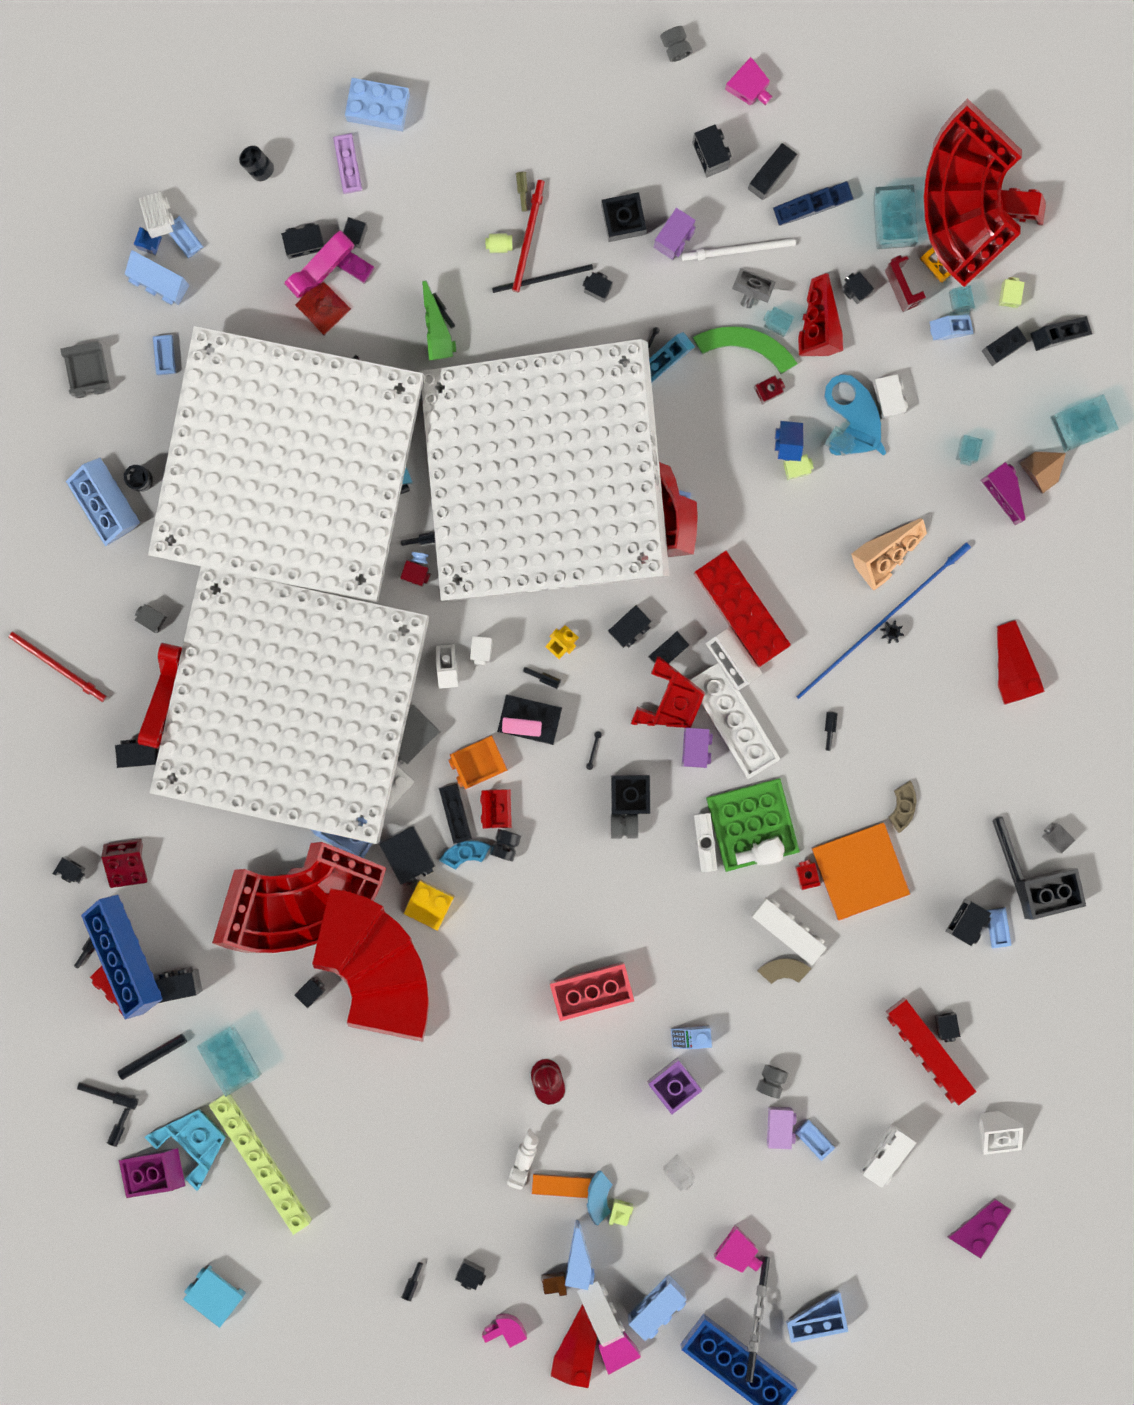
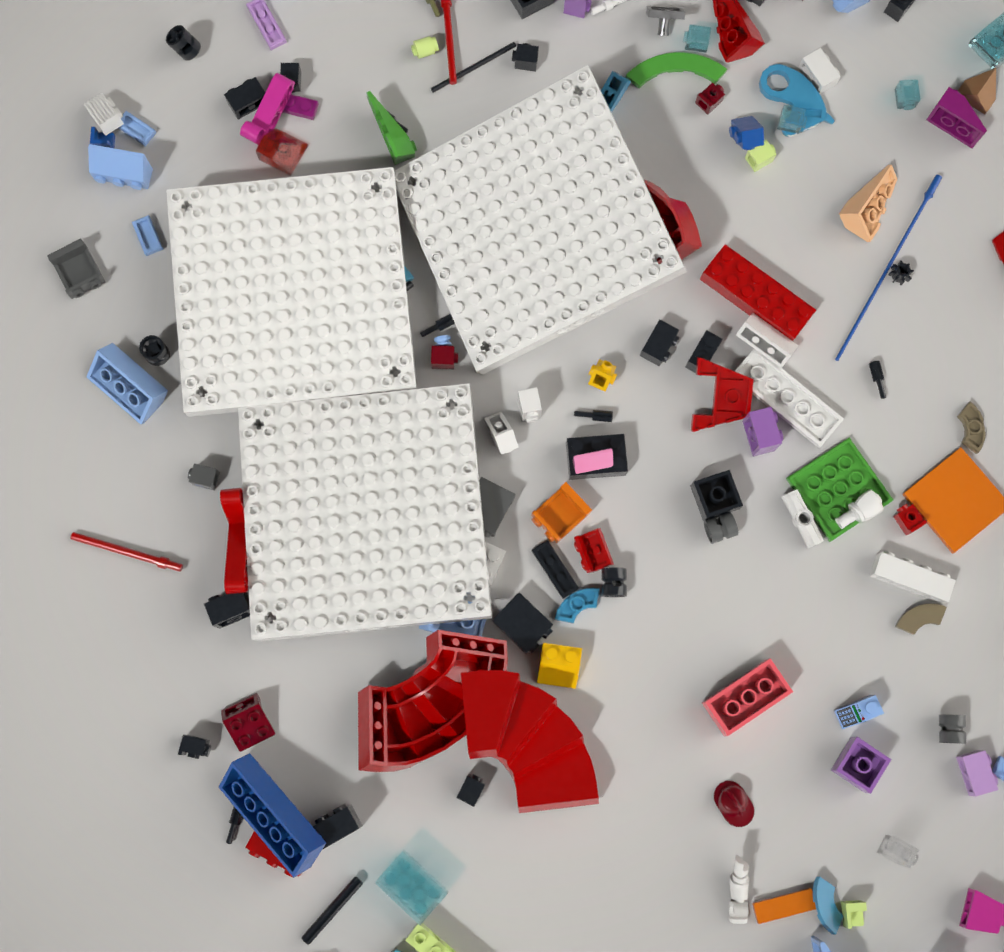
camera: 20 degrees left, 10 degrees down
(598, 734) = (664, 452): black hinge -> none

